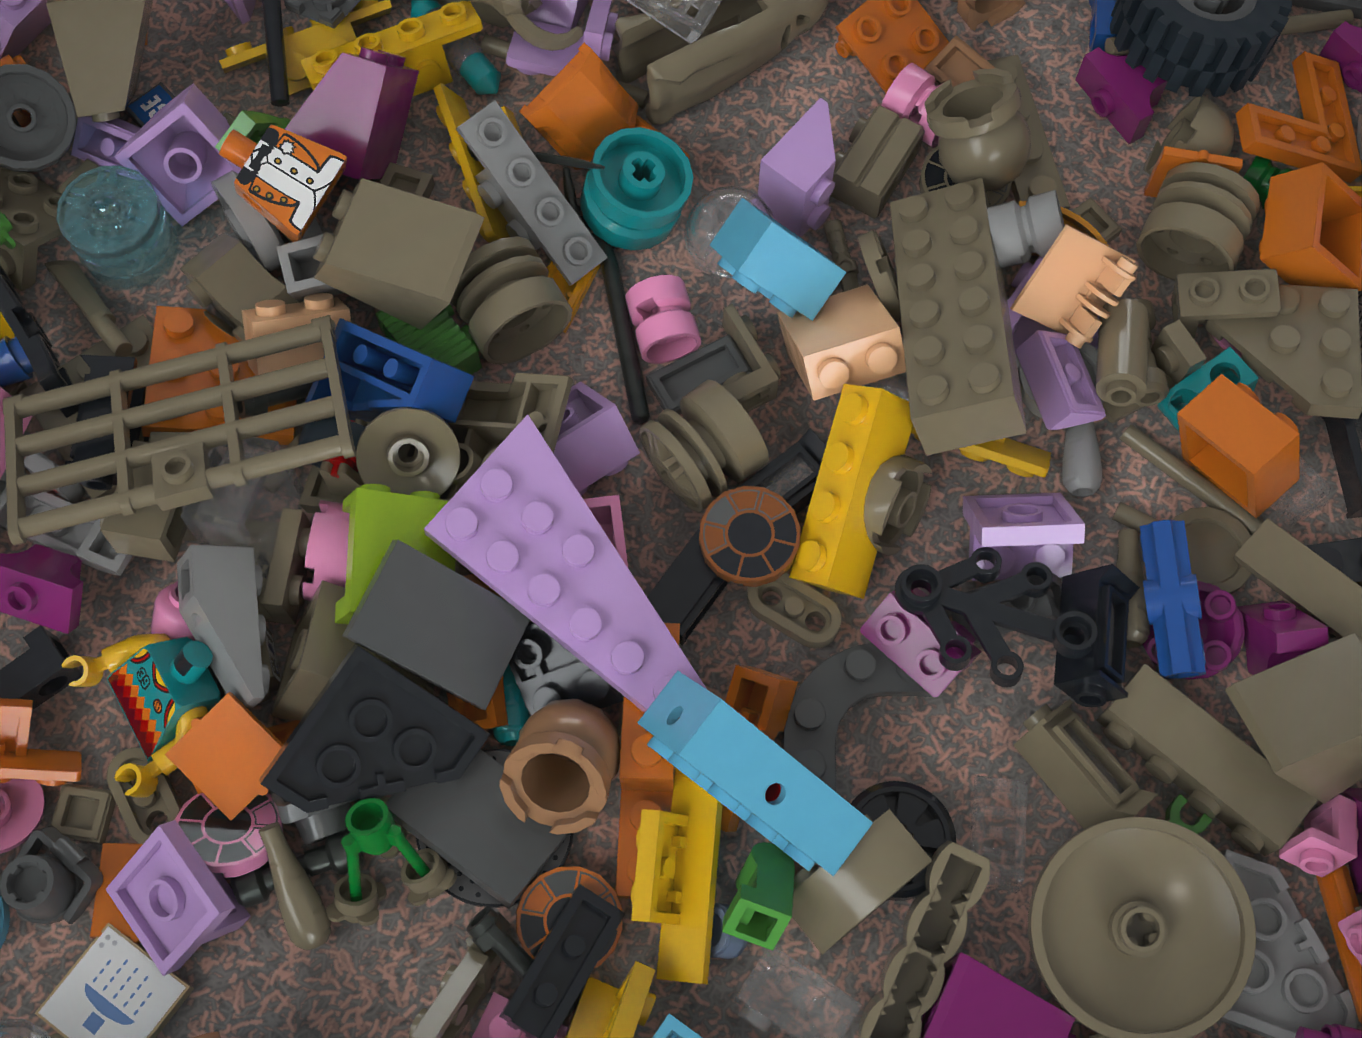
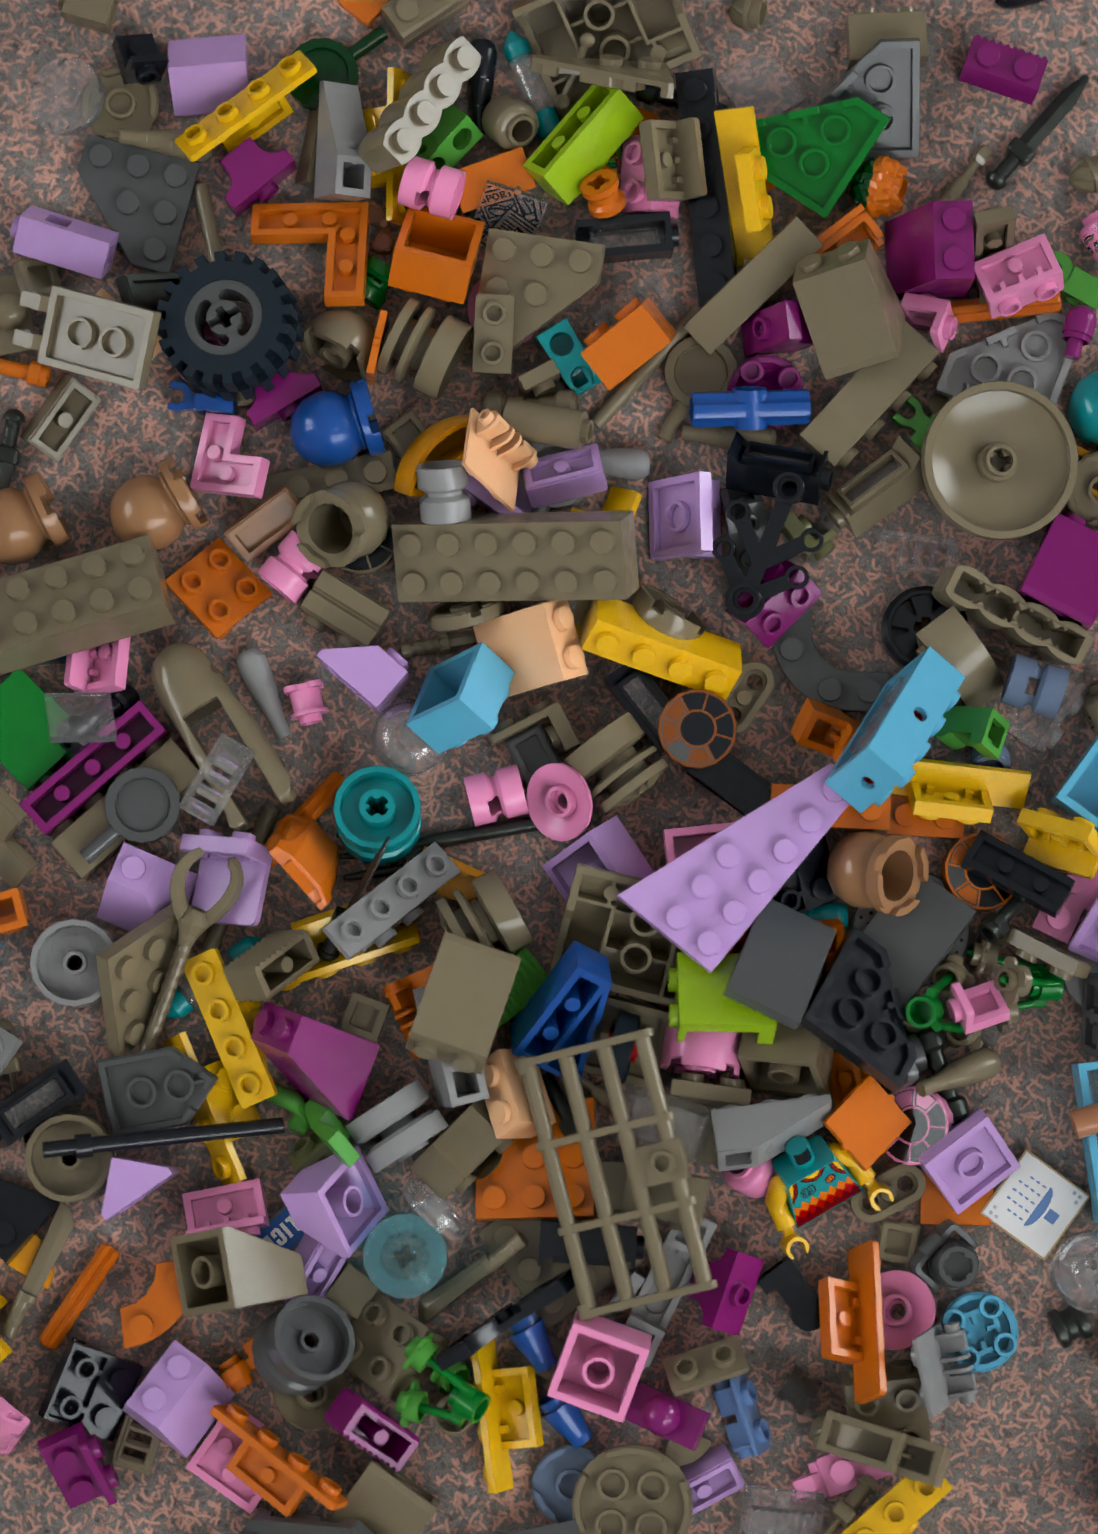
camera: 90 degrees left, 15 degrees up
(150, 245) = (435, 1211): none -> clear tile
(188, 53) = (230, 1205): none -> bright pink bracket
(284, 176) = (399, 1097): torso -> none
(377, 903) = (977, 1006): none -> bright pink bracket
(409, 954) = (1015, 979): none -> dark tan plant
(429, 469) = (639, 991): dark tan dish -> none
(457, 73) = (271, 965): none -> dark tan brick
(654, 382) = (548, 805): none -> bright pink dish
(766, 123) = (306, 702): none -> bright pink brick
(786, 84) = (260, 682): none -> light grey piece
(818, 1002) = (1048, 688): none -> sand blue wheel
(998, 700) = (796, 525): none -> olive bracket
(1030, 37) = (218, 462): none -> bright pink plate
(1095, 142) = (335, 426): none -> blue tile

